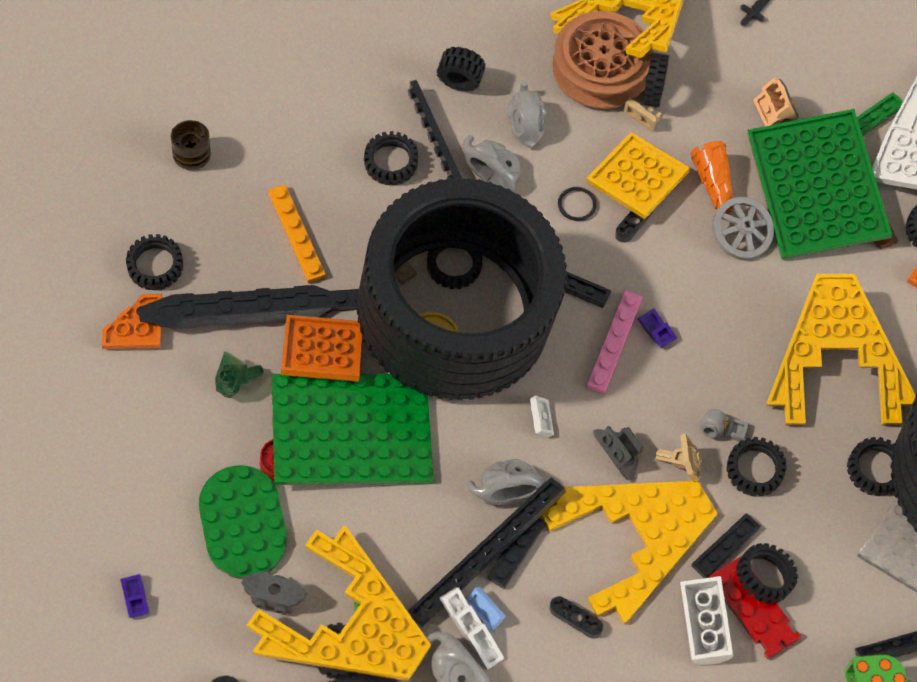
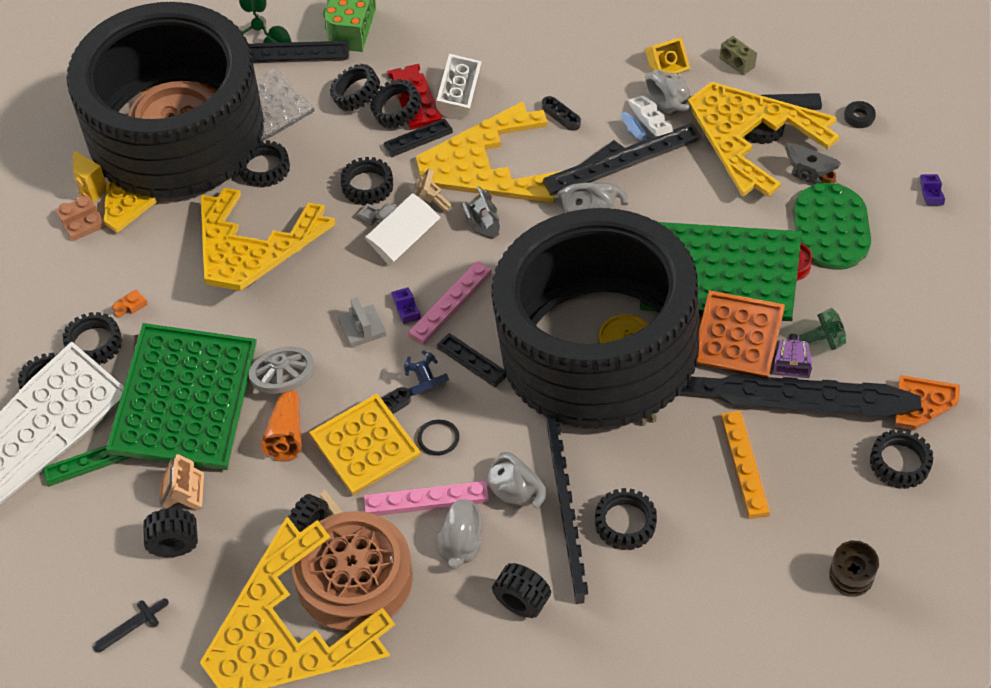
camera: 160 degrees left, 10 degrees down
(266, 344) = (793, 358): none -> medium lavender torso
(567, 145) = (425, 498): none -> bright pink plate
(608, 247) = (424, 373): none -> dark blue piece
(690, 297) = (361, 324): none -> light grey bracket
(692, 404) = (402, 228): none -> white slope
(763, 57) = (170, 532): none -> black tyre
(837, 575) = (362, 95): none -> black tyre

